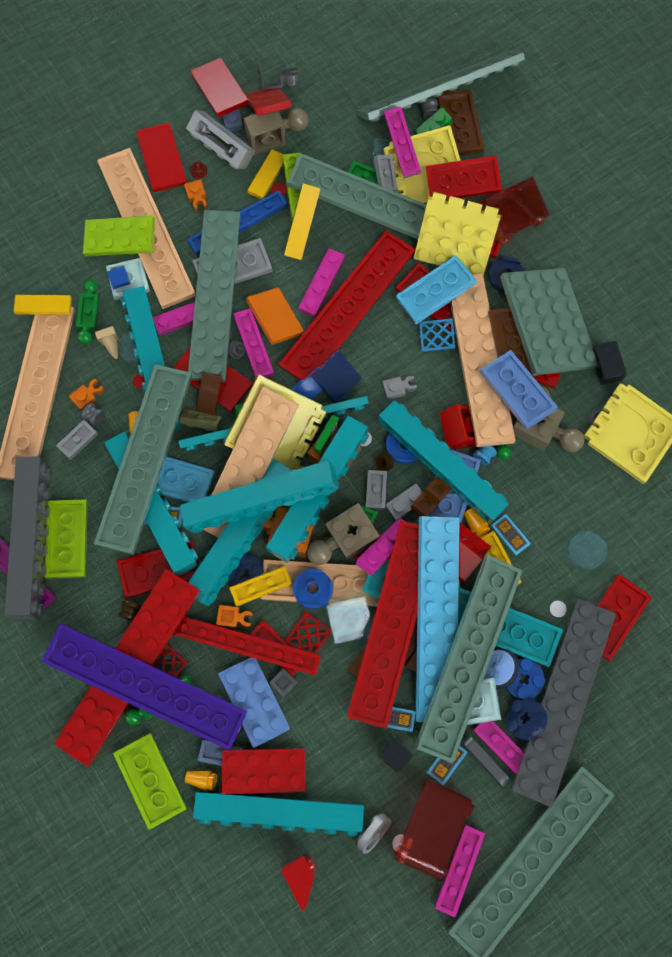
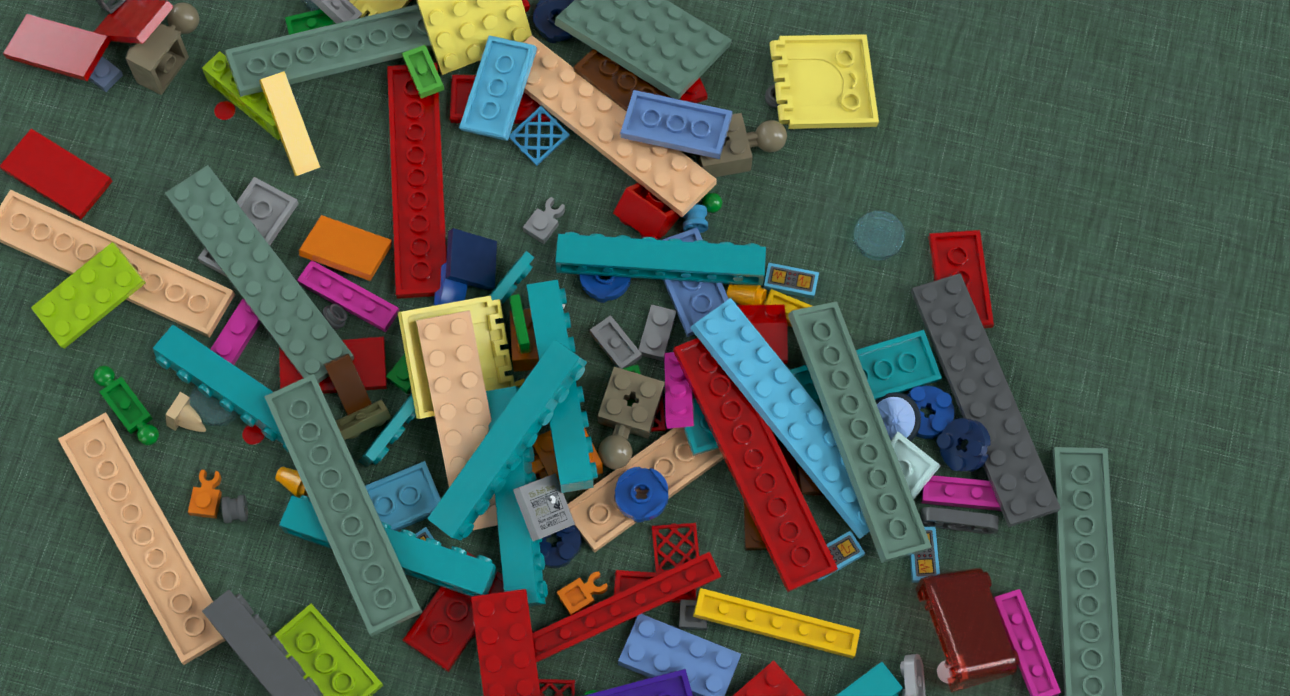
camera: 40 degrees left, 5 degrees down
(43, 304) = (68, 436): yellow tile -> none
(77, 439) = (241, 550): light grey plate -> none
(118, 277) = (129, 340): blue tile -> none
(129, 610) = (465, 678): dark brown wheel -> none
(136, 274) = (136, 335): light aqua tile -> none
(196, 193) = (134, 183): orange plate -> none
(198, 166) = (110, 151): clear red plate -> none
(236, 156) = (70, 104): light grey brick -> none
(248, 551) = (543, 507): none -> light grey tile
(249, 216) = (220, 160): blue tile -> none
(260, 586) = (584, 536): yellow tile -> none
(266, 175) = (198, 104): yellow tile -> none
(321, 282) = (364, 175): dark pink plate -> none
(324, 730) = (776, 623): none -> yellow plate
(349, 619) = (704, 494): clear light blue tile -> none
(381, 464) = (596, 313): dark brown plate -> none
(395, 756) = (869, 587): black panel -> none
(401, 248) = (423, 71): none -> bright green plate
(431, 497) = (680, 305): reddish brown slope -> none
(558, 609) = (900, 316): white sticker -> none
(610, 363) = (741, 29): black panel -> none

